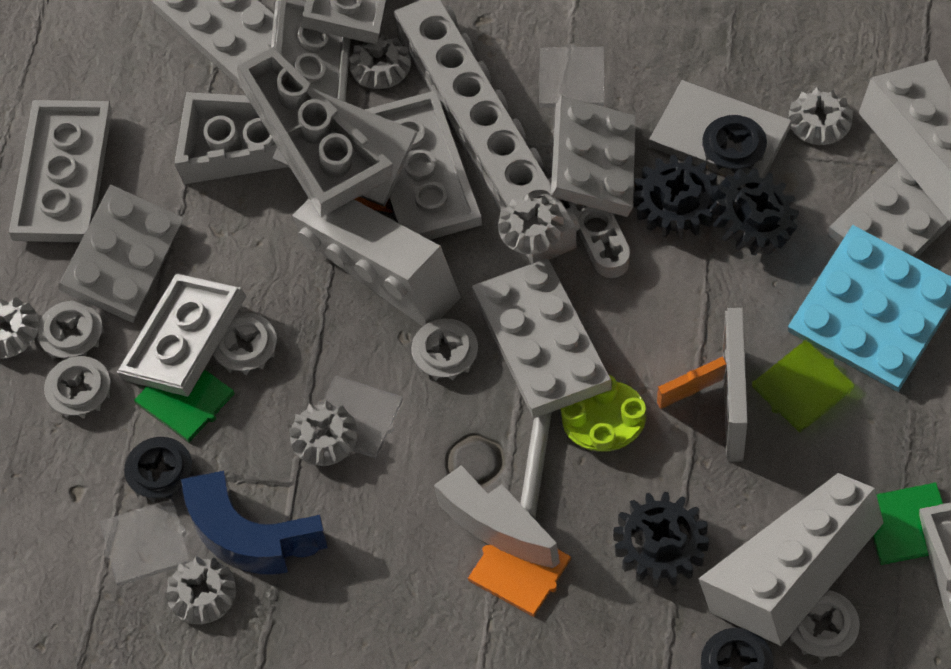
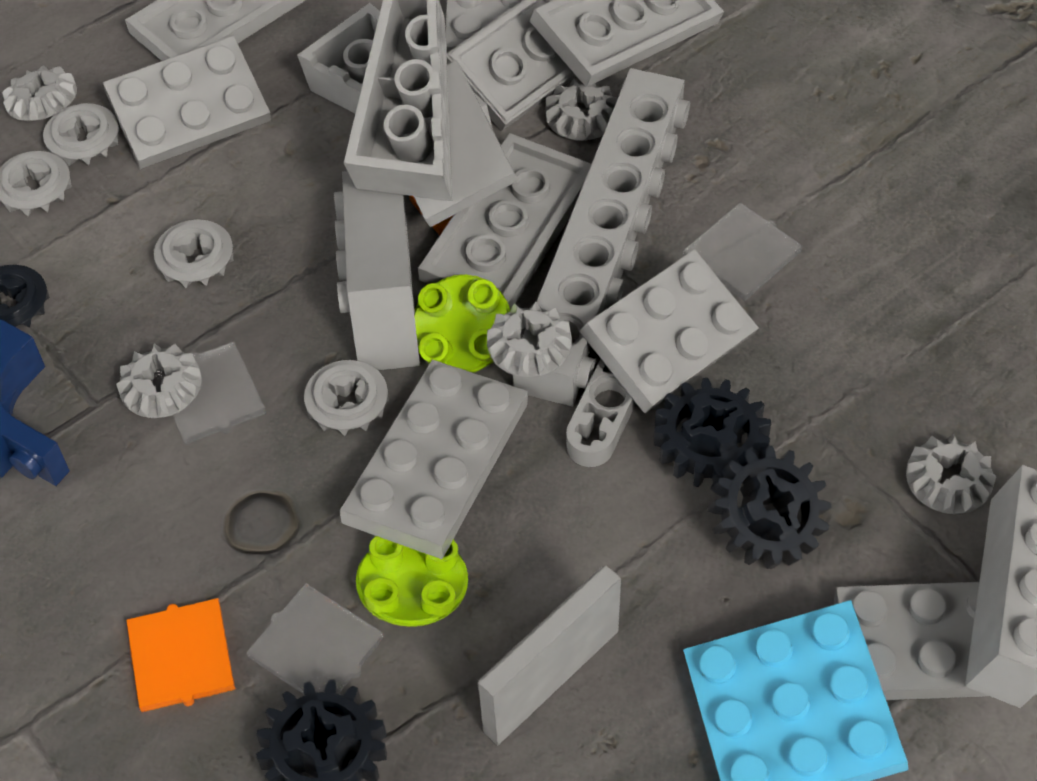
camera: 40 degrees right, 5 degrees down
(181, 334) = (153, 203): light grey tile -> none
(186, 414) = (101, 260): green piece -> none
(470, 247) = (455, 320): none -> lime dish
(495, 518) = (202, 581): light grey slope -> none
(535, 463) = (299, 572): light grey bar -> none
(587, 496) = (315, 642): none -> clear piece
(691, 112) = (828, 410): light grey tile -> none
(691, 382) = (500, 611): orange piece -> none
(737, 129) = (844, 421): black gear -> none
(803, 386) = (639, 724): clear neon green piece -> none

